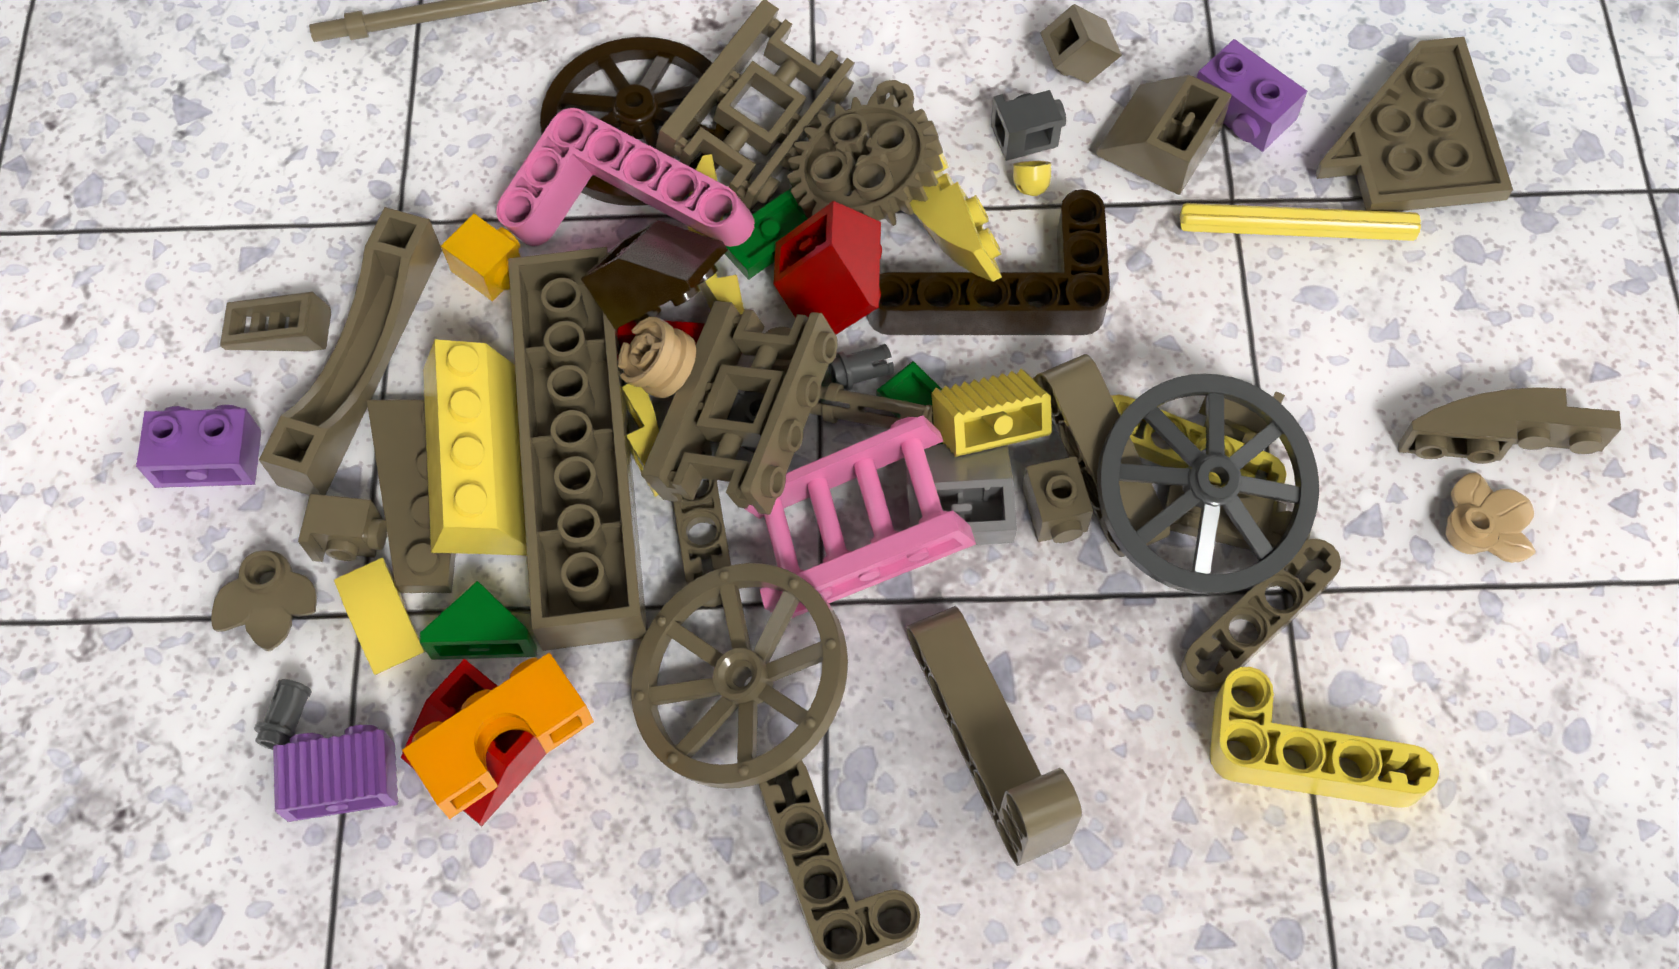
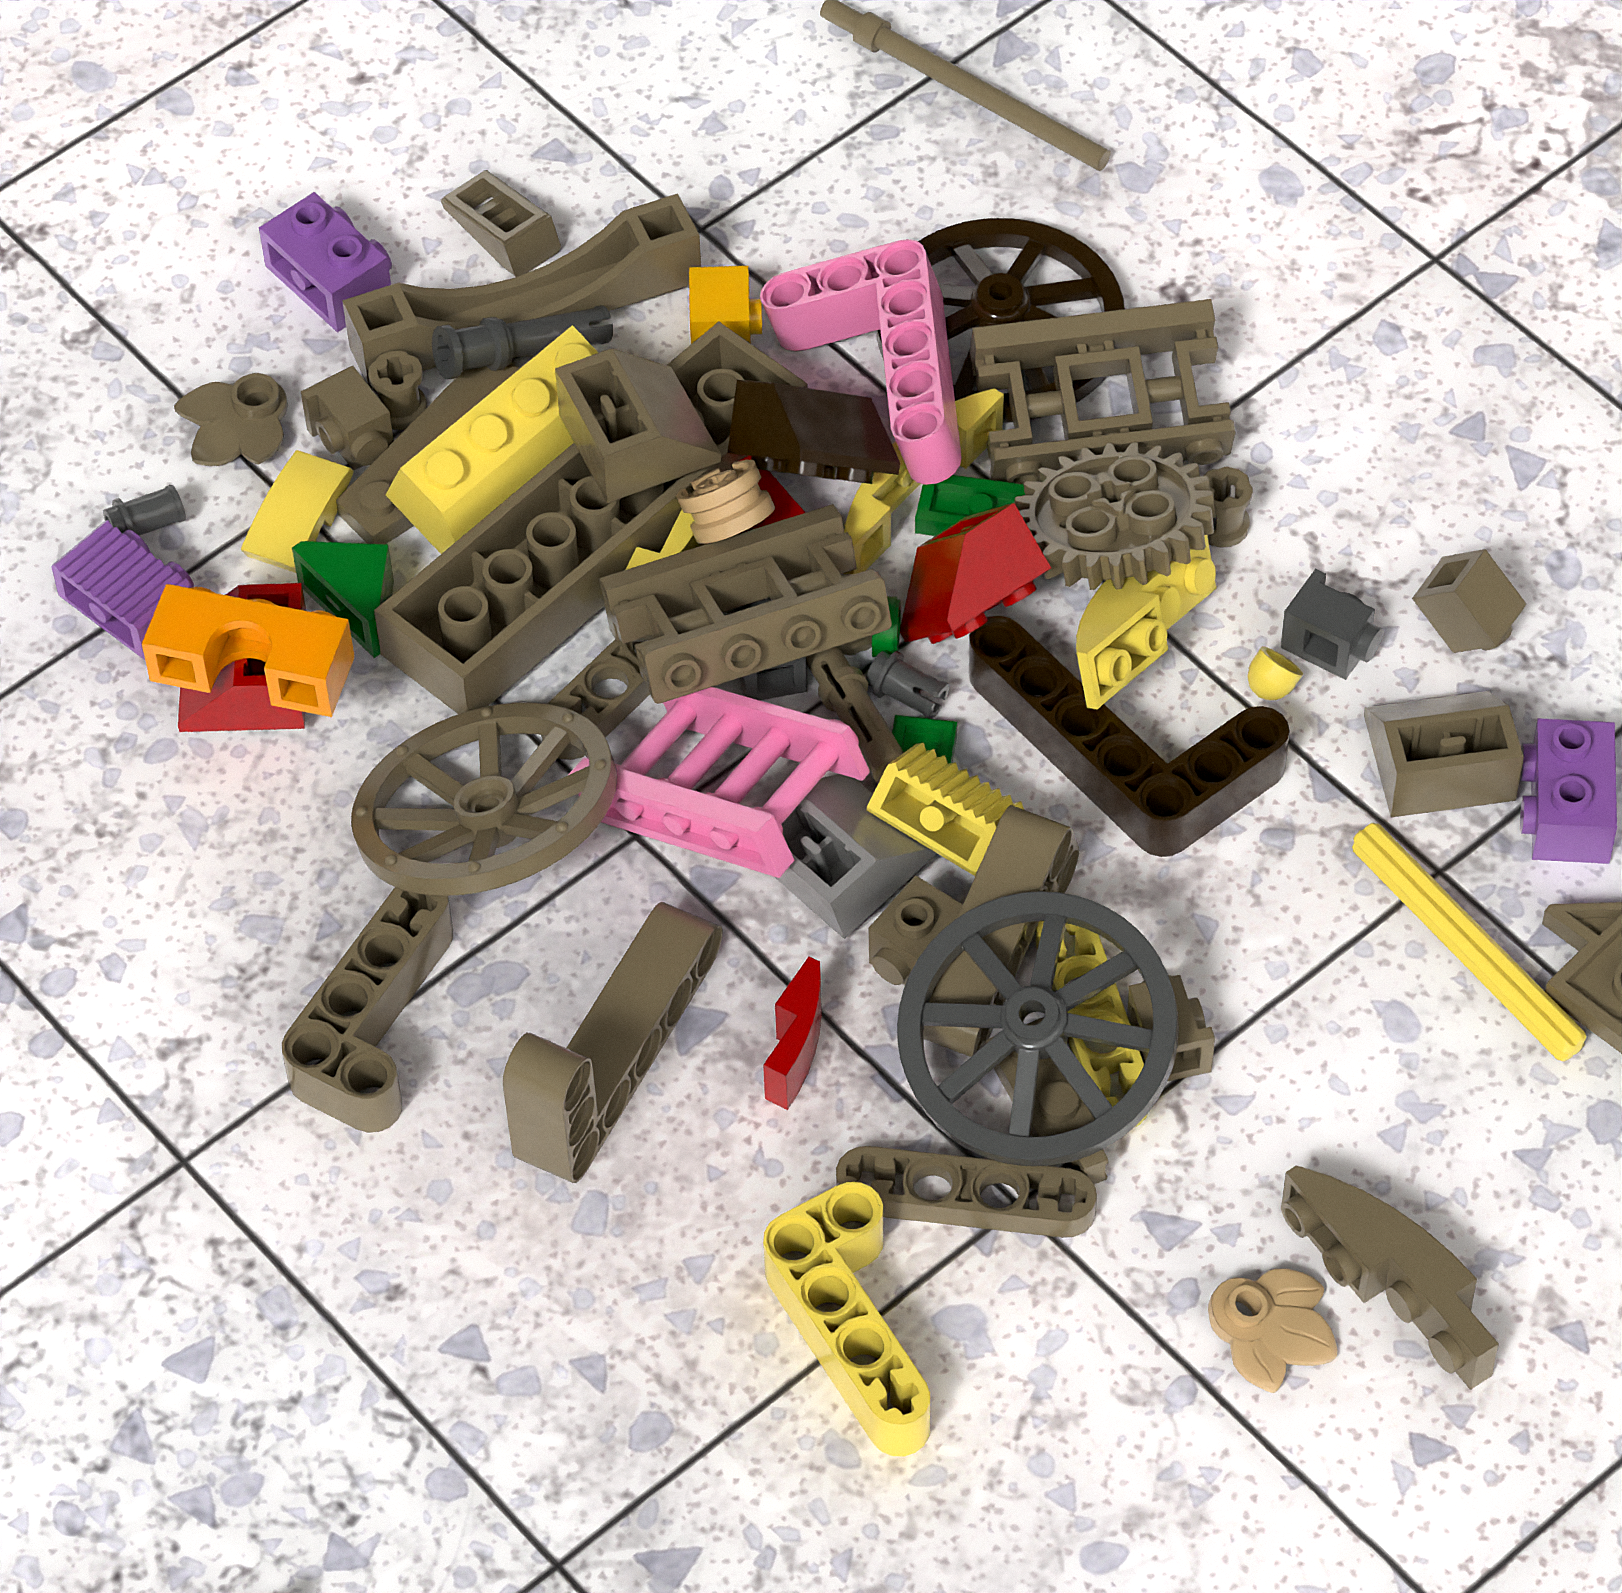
camera: 50 degrees right, 10 degrees down
(346, 477) = (396, 380): none -> dark tan bush
(381, 396) = (497, 343): none -> dark grey pin
(550, 365) = (631, 422): none -> dark tan slope
(1065, 612) = (798, 1029): none -> red slope

